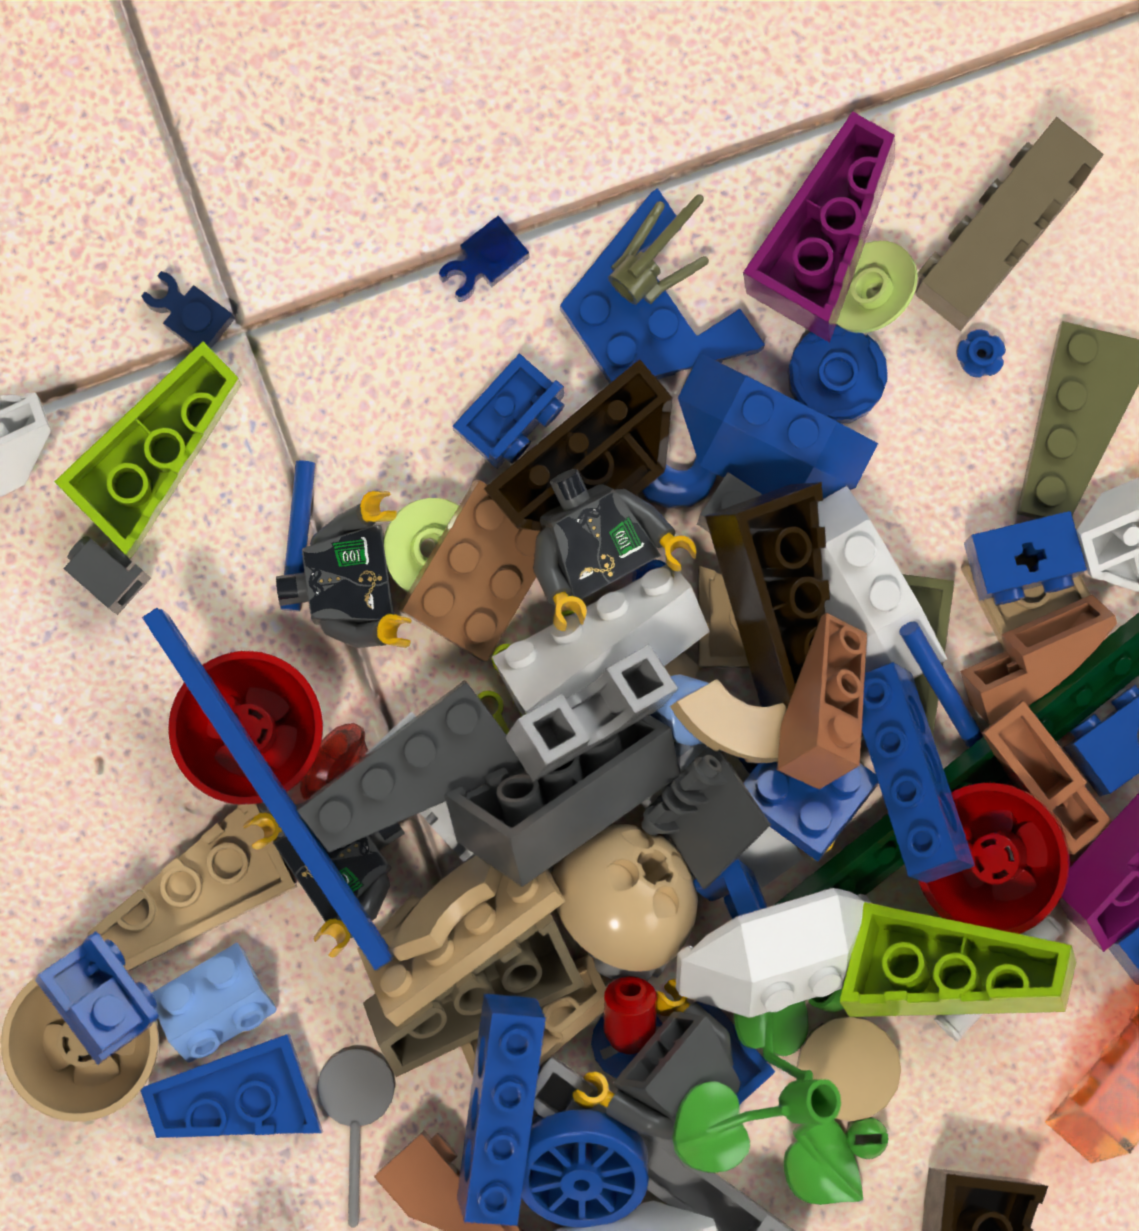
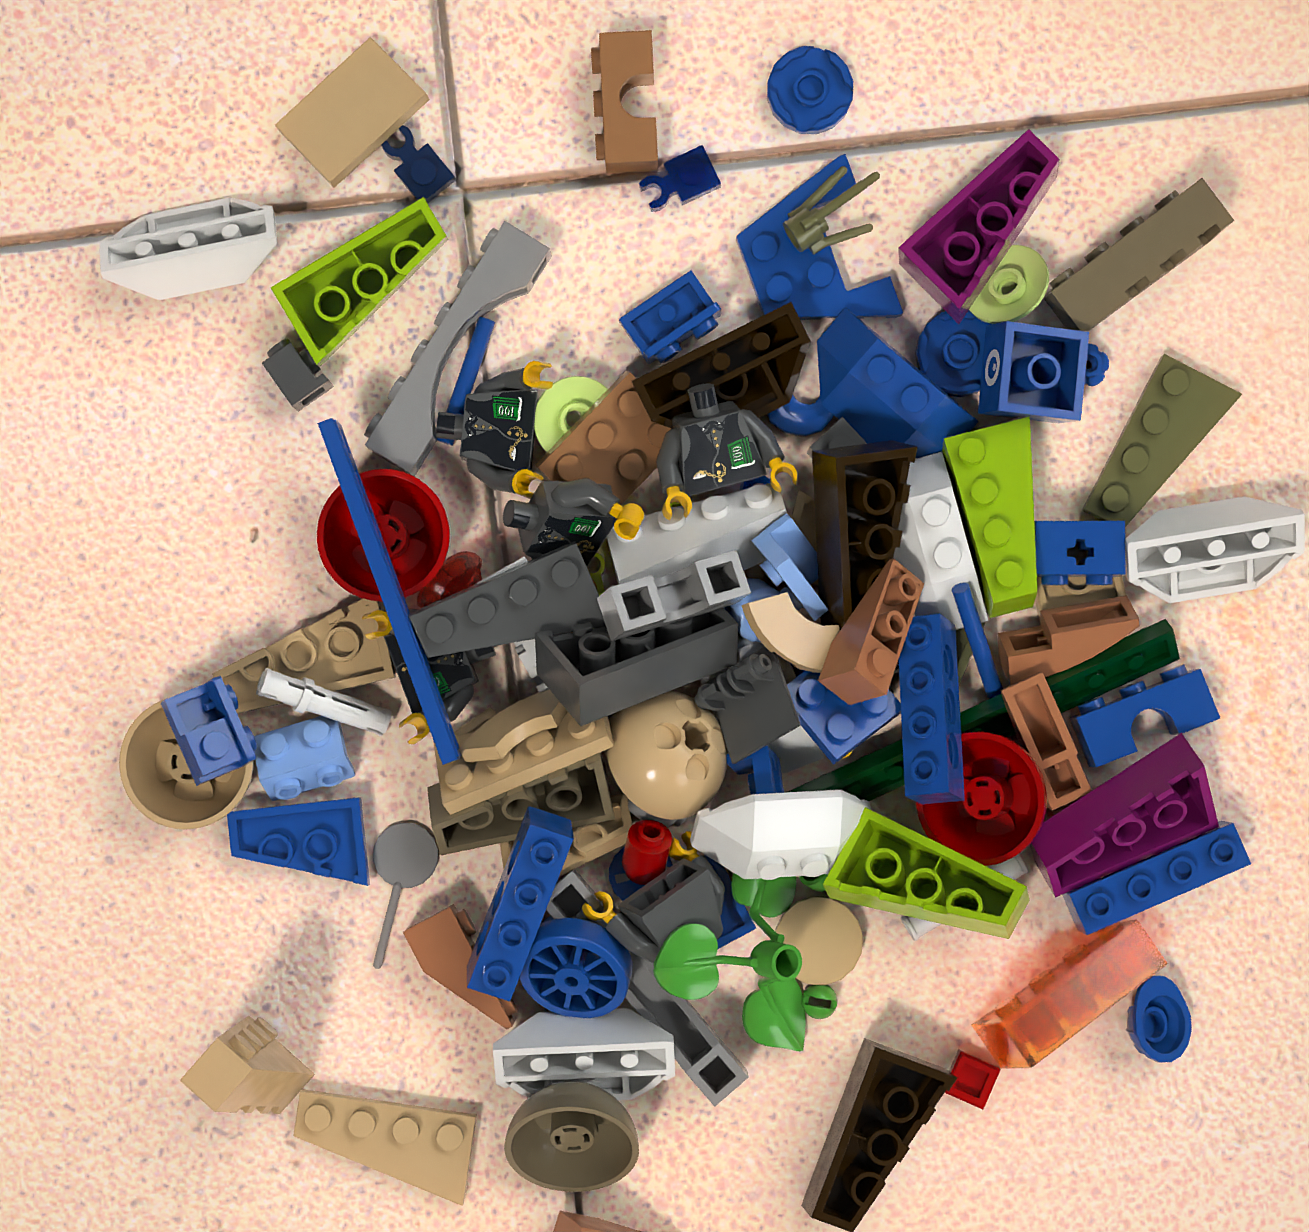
camera: 20 degrees right, 5 degrees up
(102, 271) = (352, 112): none -> tan tile
(205, 932) = (309, 697): none -> white pin
(313, 405) = (504, 272): none -> light grey arch
(414, 229) = (624, 63): none -> medium nougat arch
(453, 649) = (570, 513): none -> torso
(601, 130) = (810, 90): none -> blue tile
(713, 647) = (791, 561): none -> light blue bracket
(925, 529) = (996, 507): none -> lime wedge
(926, 373) = (1033, 372): none -> blue brick
(1067, 1183) = (974, 1079): none -> red tile

